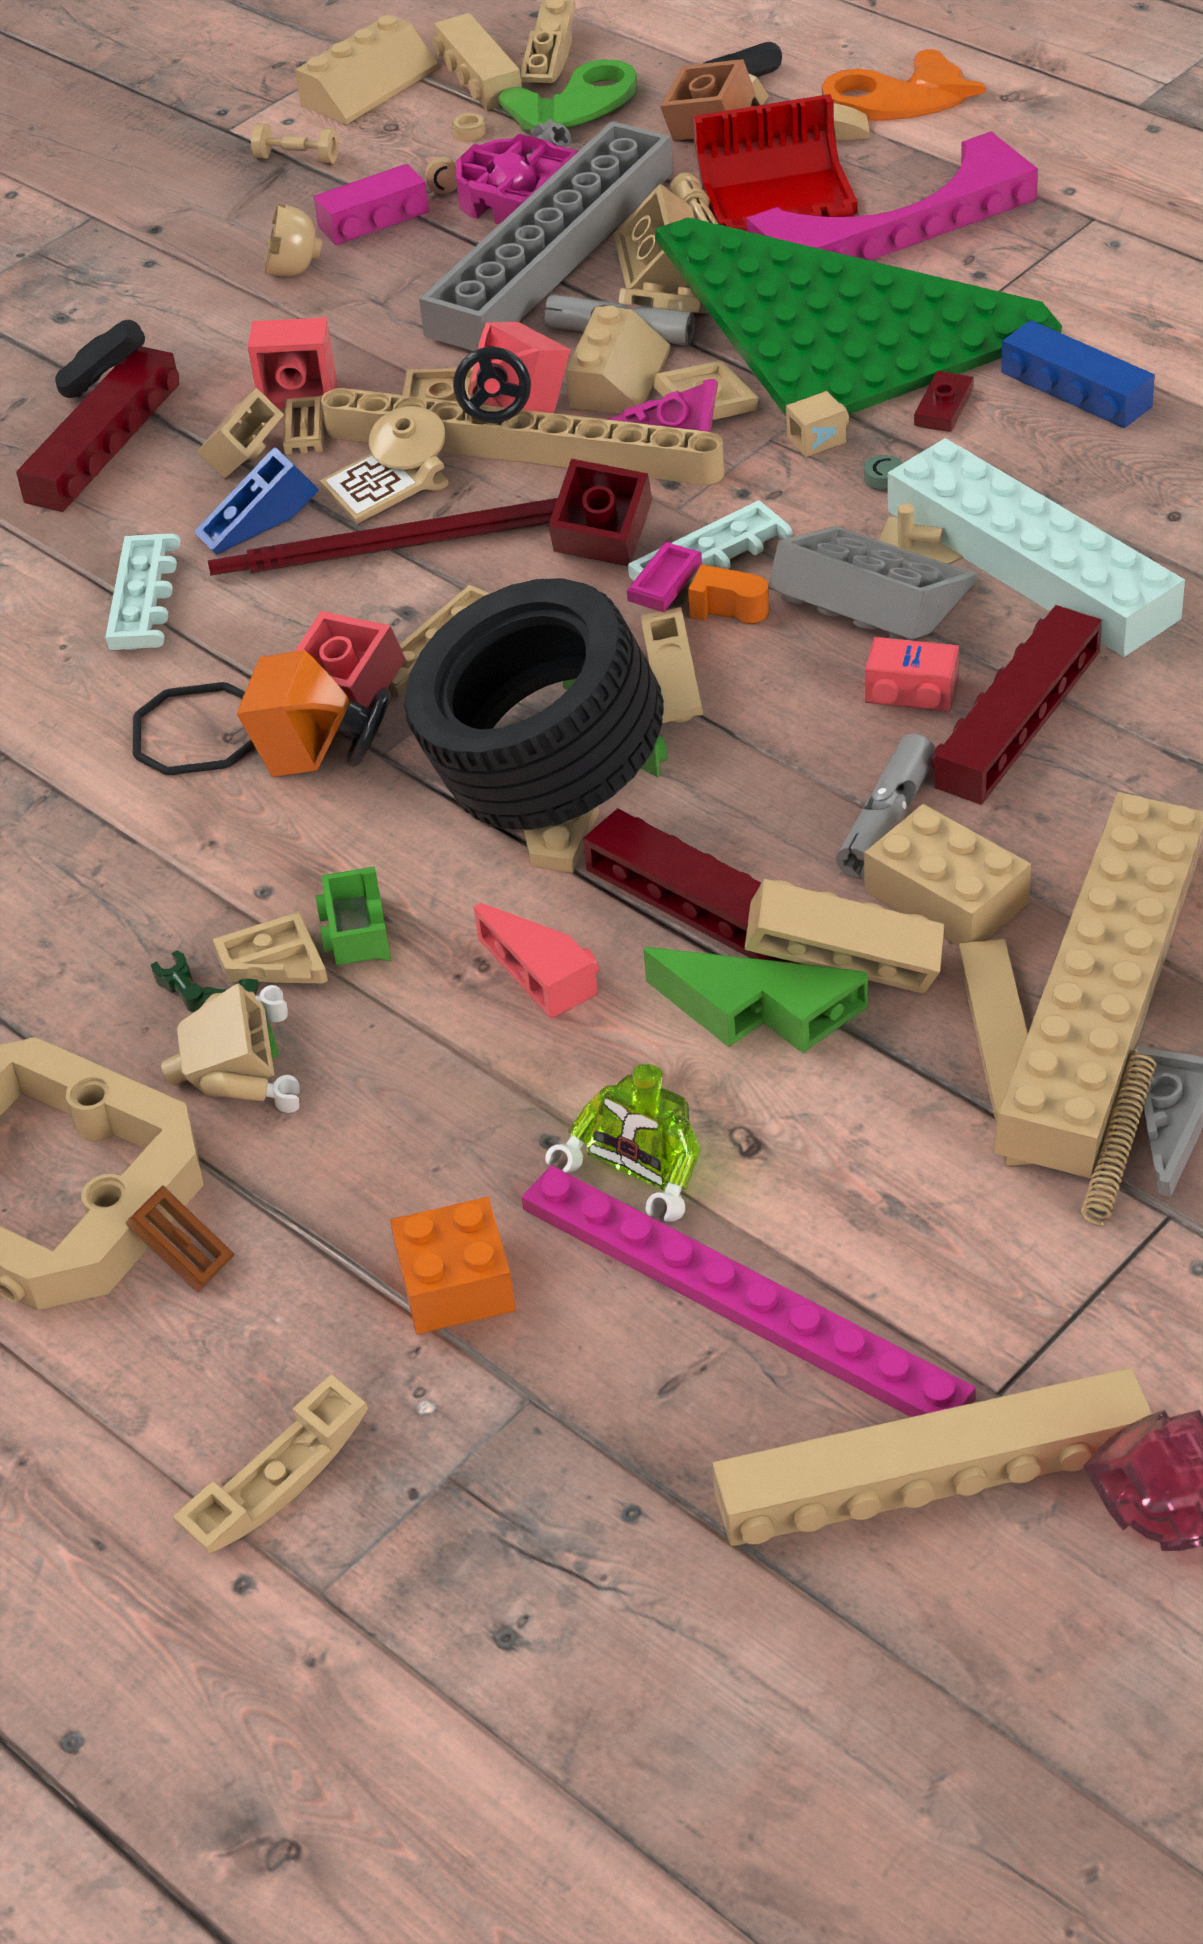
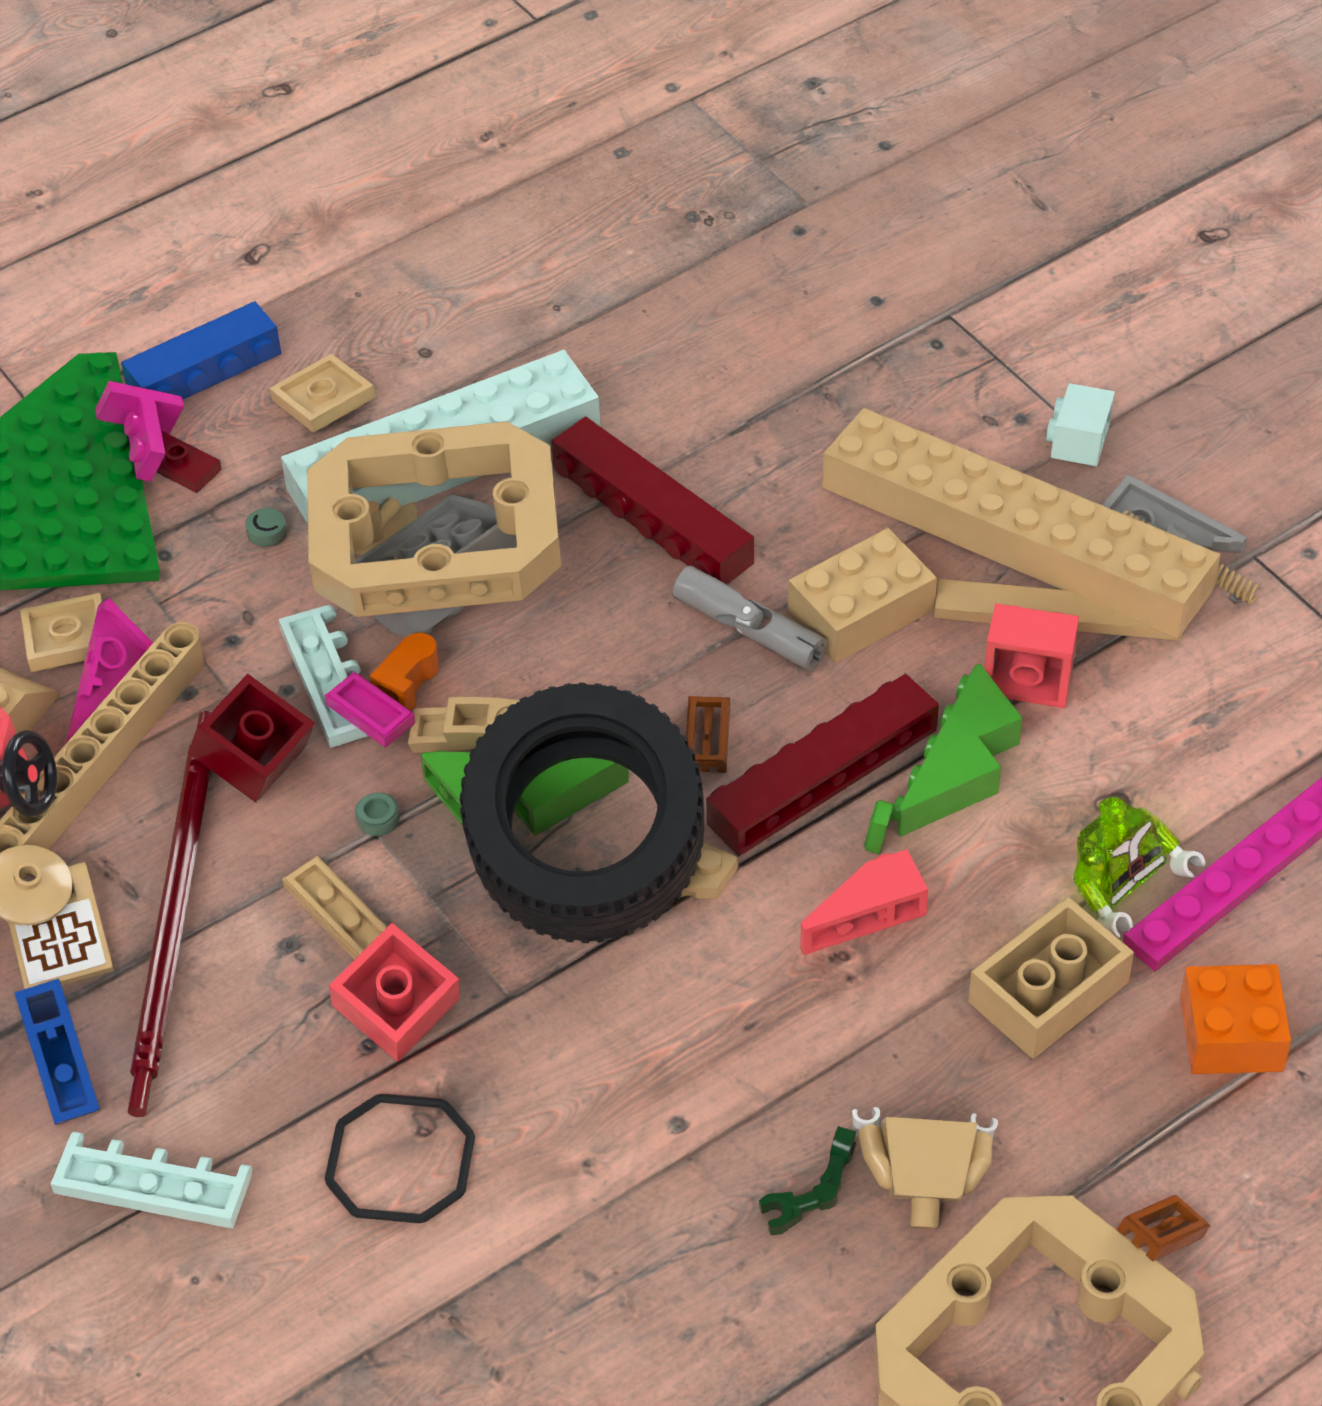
camera: 80 degrees left, 5 degrees up
(271, 953) = (787, 1117): tan wing -> none
(298, 708) = (467, 1025): orange piece -> none
(354, 916) = (764, 1043): bright green window -> none
(465, 1103) = (1050, 977): none -> tan brick
(632, 945) = (878, 826): none -> bright green tile
(729, 813) = (707, 760): none -> dark orange tile
(816, 423) = (174, 555): tan brick -> none
(844, 935) = (937, 664): tan brick -> none
(896, 1012) = (1031, 654): none -> coral brick
(912, 673) = (588, 560): coral brick -> none
(915, 579) = (435, 576): none -> tan panel
(968, 346) = (143, 417): none -> dark pink bracket
(1071, 459) = (322, 393): none -> tan plate

